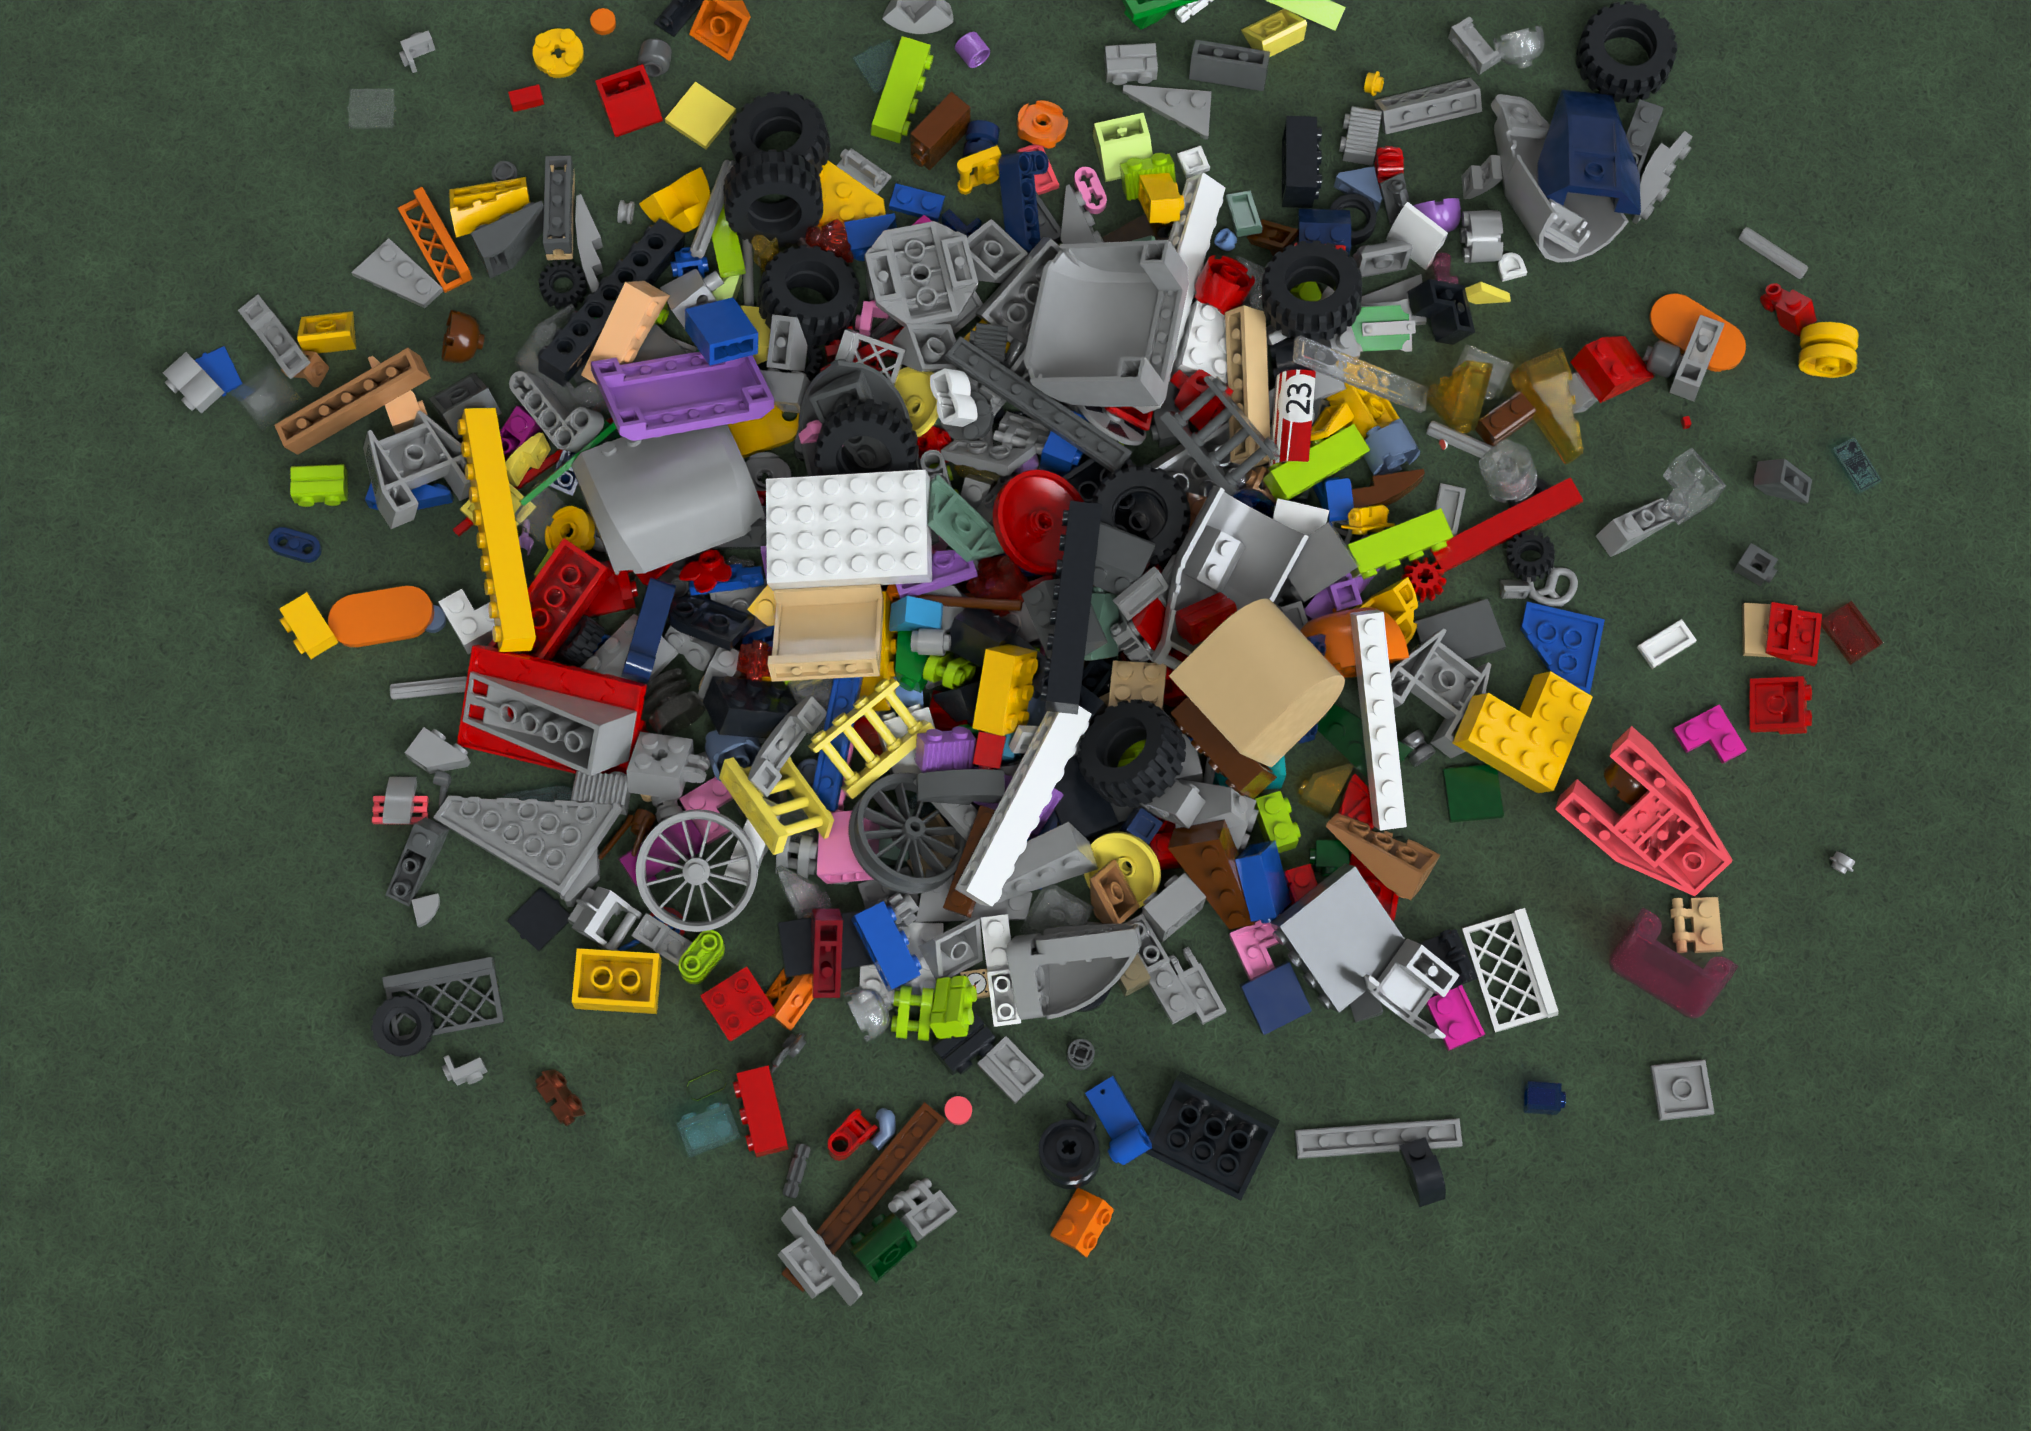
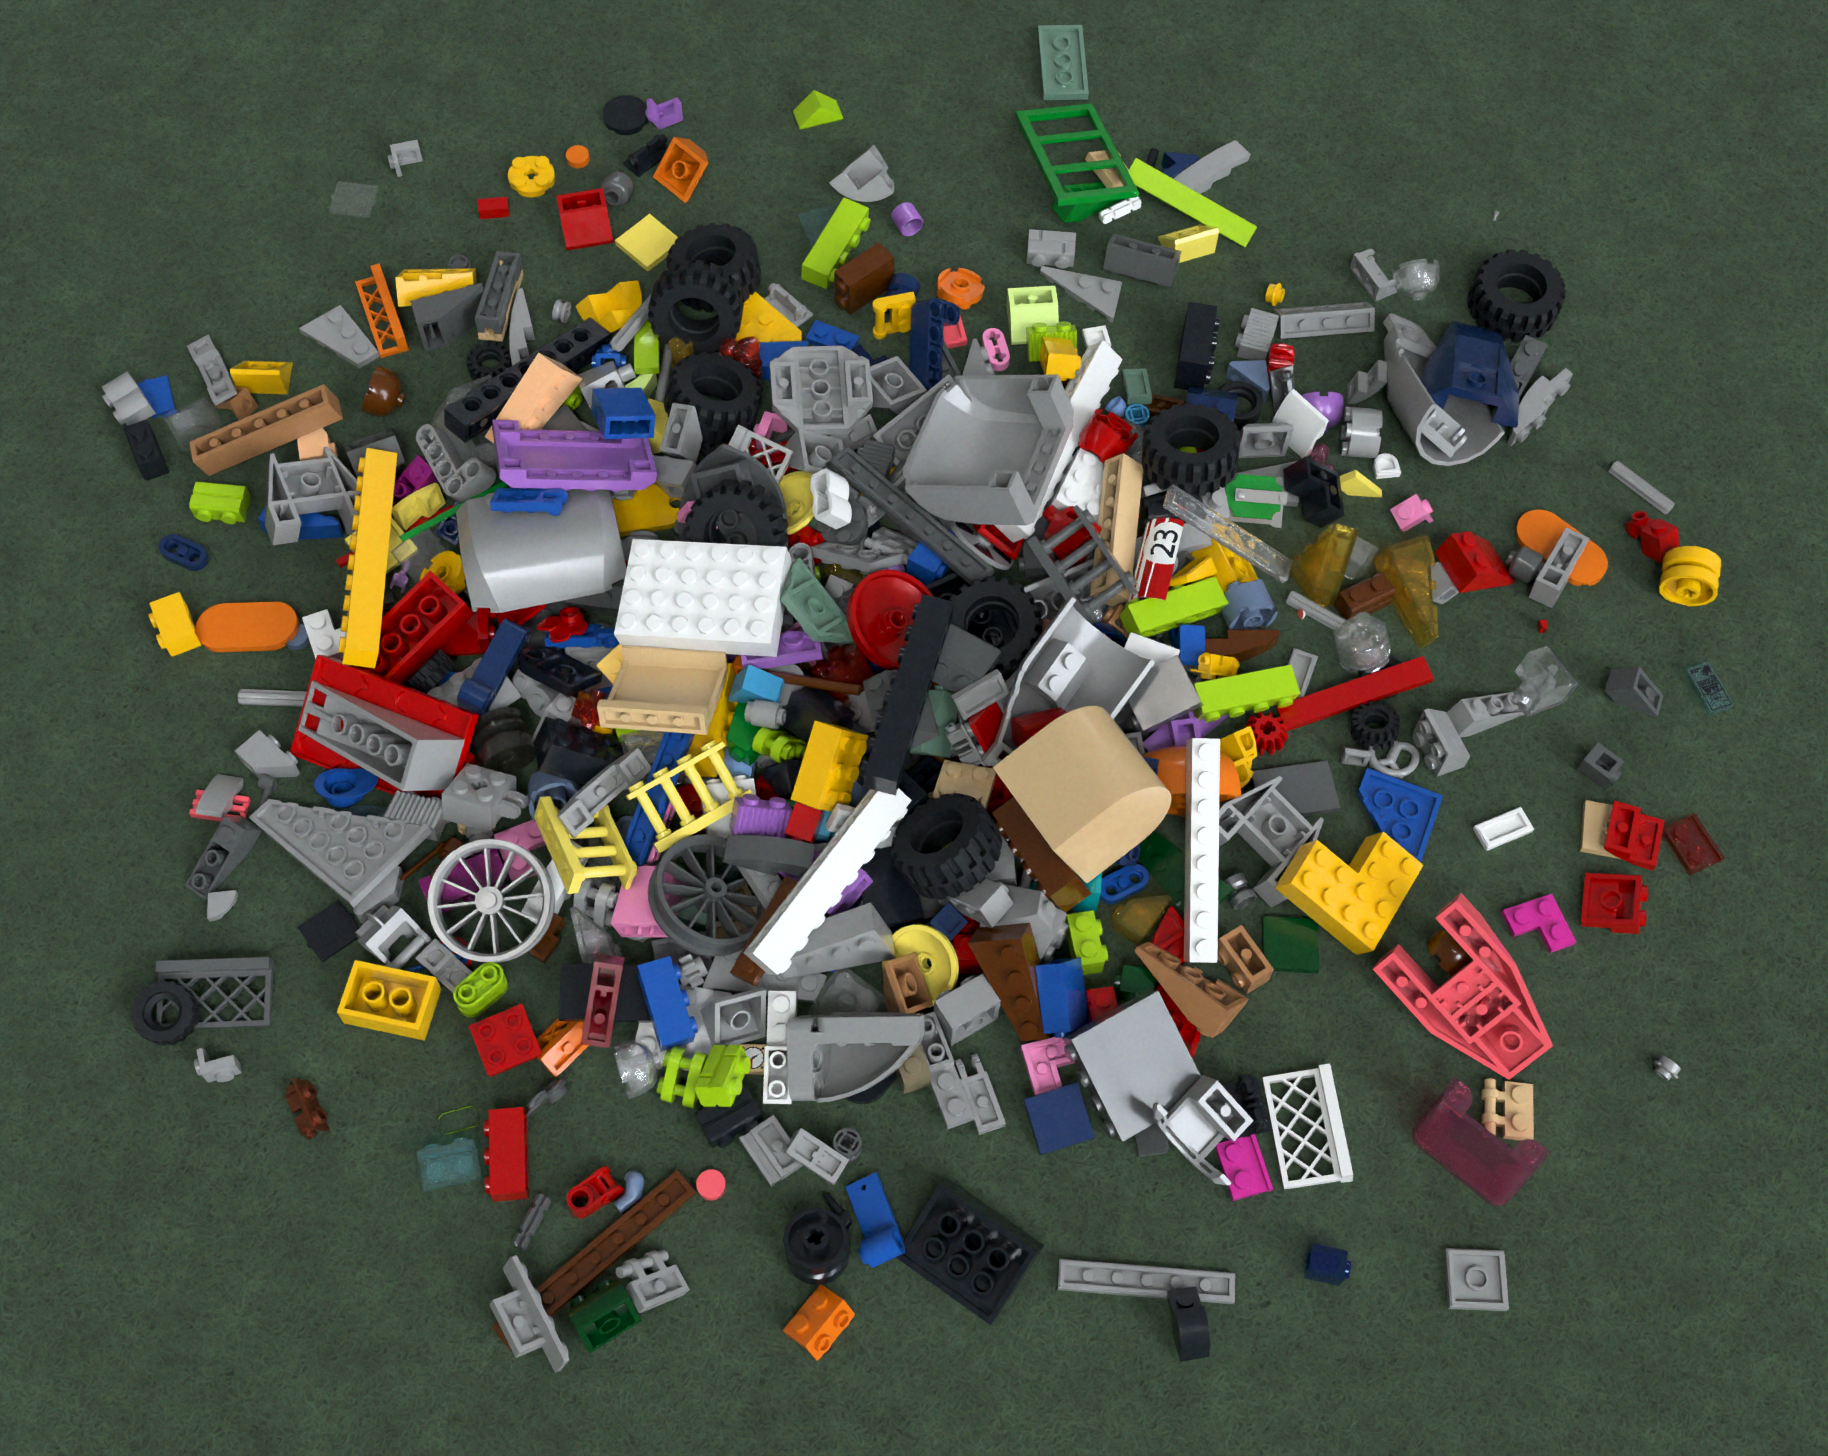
camera: 10 degrees right, 10 degrees down
(227, 437) = (146, 450): none -> black brick
(522, 771) = (344, 786): none -> blue piece
(651, 450) = (529, 500): none -> blue plate
(757, 899) = (549, 942): none -> reddish brown plate
(1054, 1070) = (816, 1156): none -> light grey hinge
(1253, 245) = (1138, 414): none -> dark azure wheel
(1304, 758) = (1122, 885): none -> blue plate
(1430, 817) = (1243, 959): none -> medium nougat brick
(1543, 316) = (1412, 512): none -> bright pink bracket
(1596, 565) = (1439, 742): none -> light grey slope

